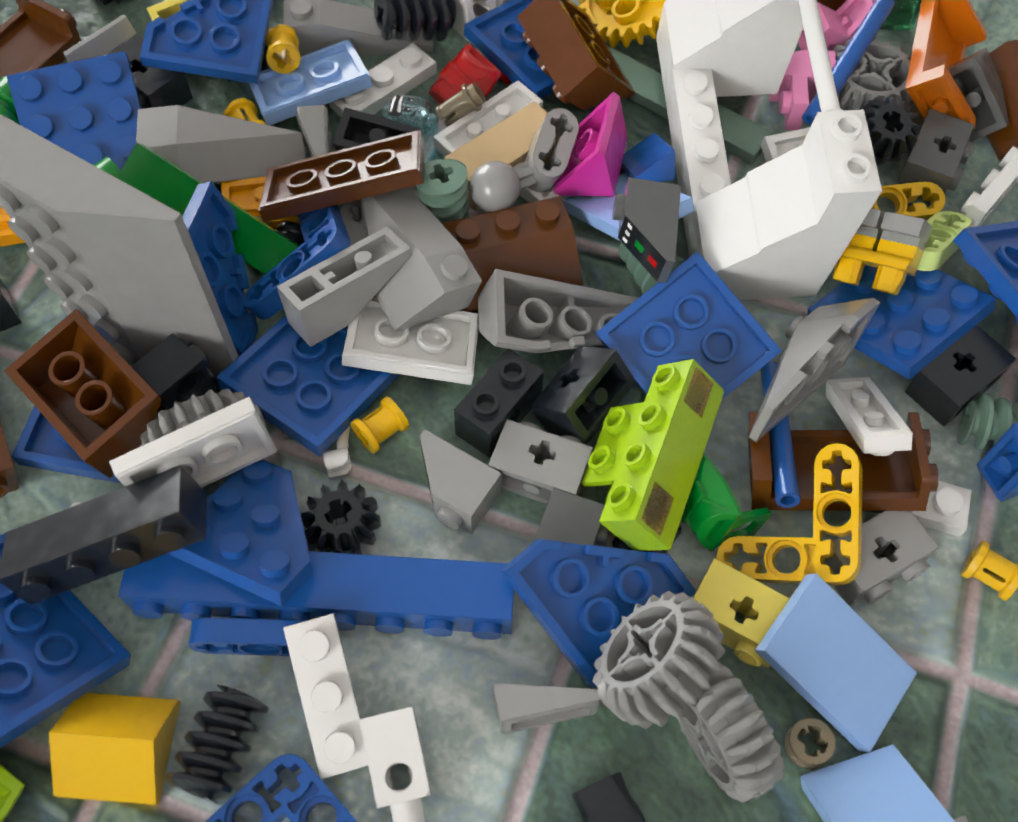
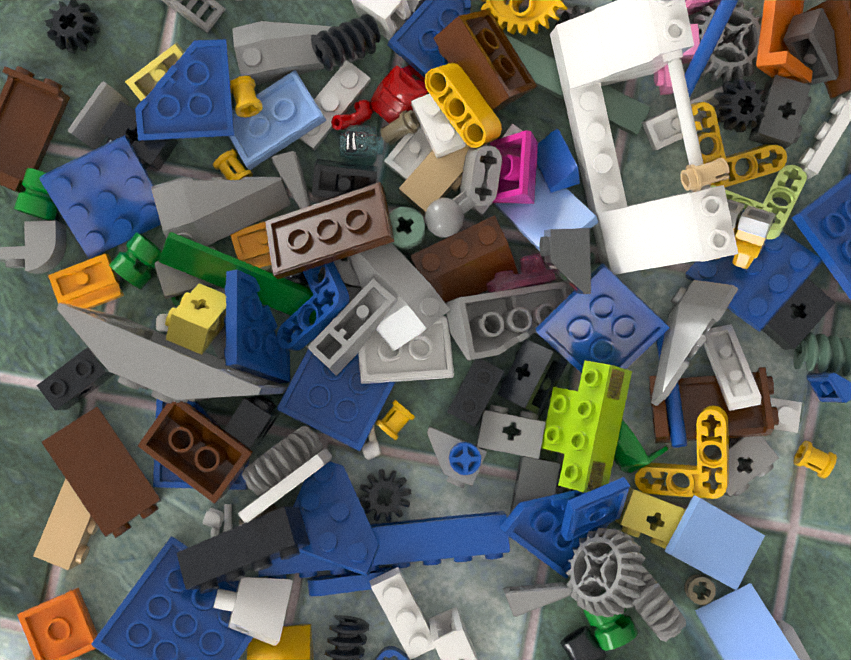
camera: 10 degrees left, 25 degrees up
(100, 638) = (257, 607): none -> white torso
(420, 88) = (362, 114): none -> red arm
(466, 456) = (468, 461): none -> blue wheel
(507, 98) = (437, 127): none -> white plate
(538, 73) = (449, 98): none -> yellow beam
(598, 272) = (532, 274): none -> clear pink hinge
(649, 558) = (594, 509): none -> blue plate
(658, 763) = (612, 631): none -> green wheel
(837, 94) = (697, 176): none -> tan pin

